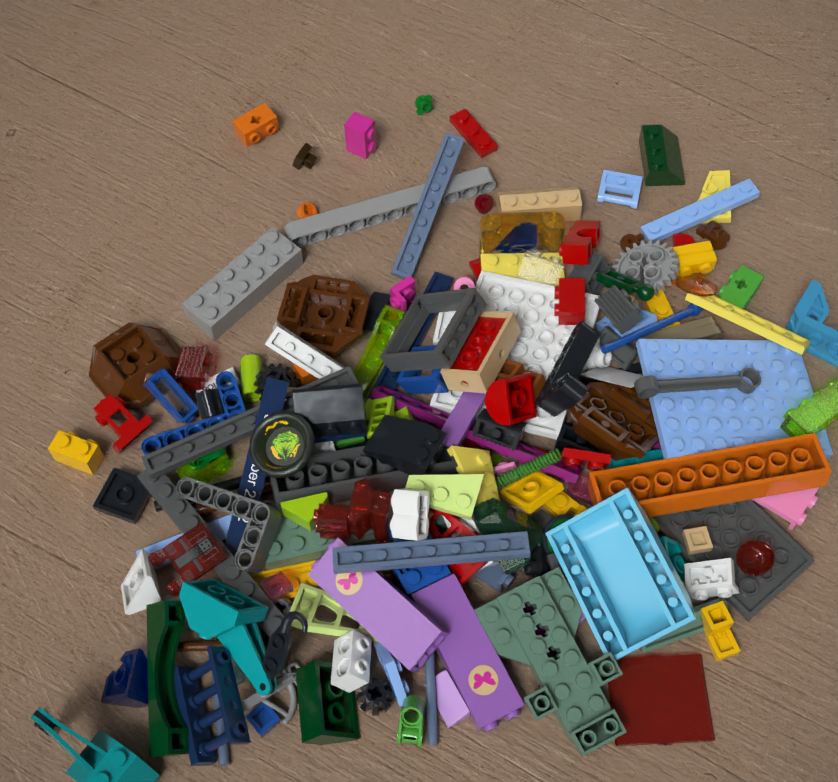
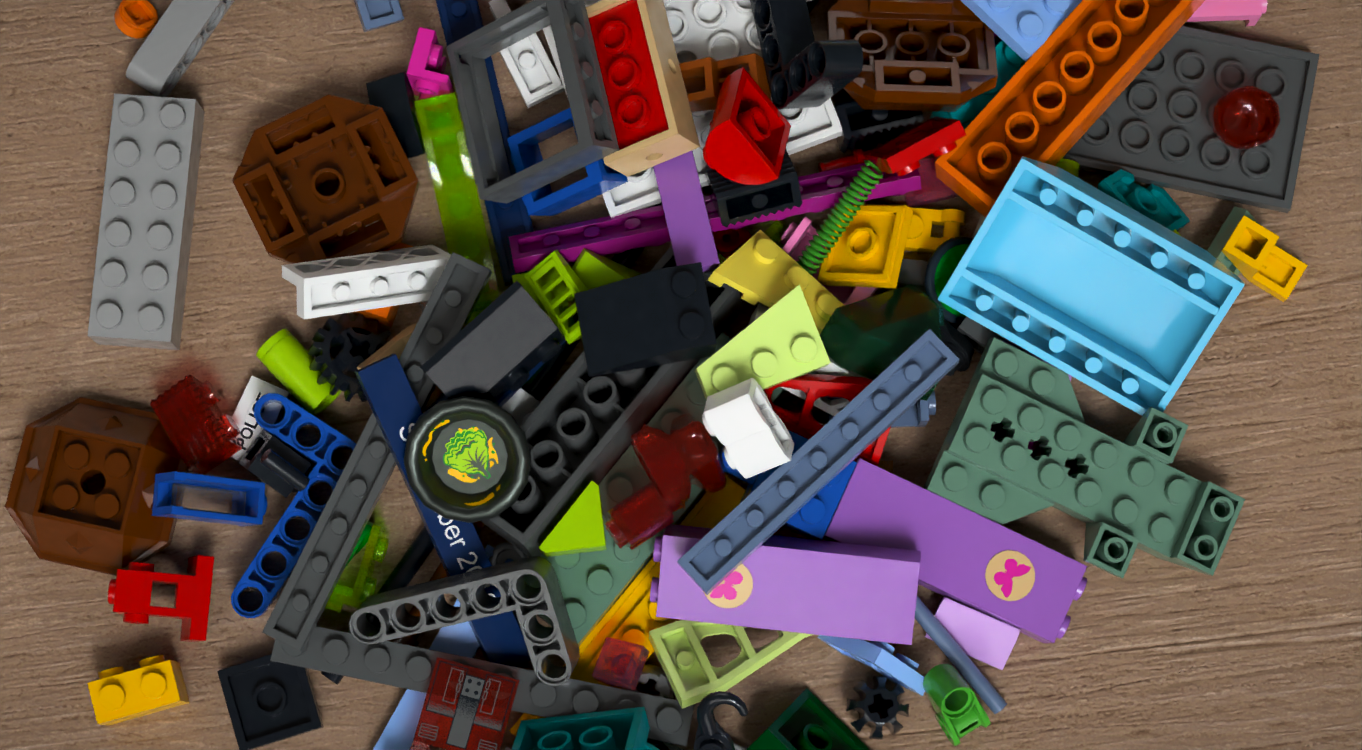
camera: 40 degrees left, 20 degrees up
(351, 661) = (810, 687): white brick -> none
(662, 700) = (1253, 412): clear red piece -> none
(697, 540) = (1147, 147): tan plate -> none
(710, 579) = (1203, 192): white bracket -> none

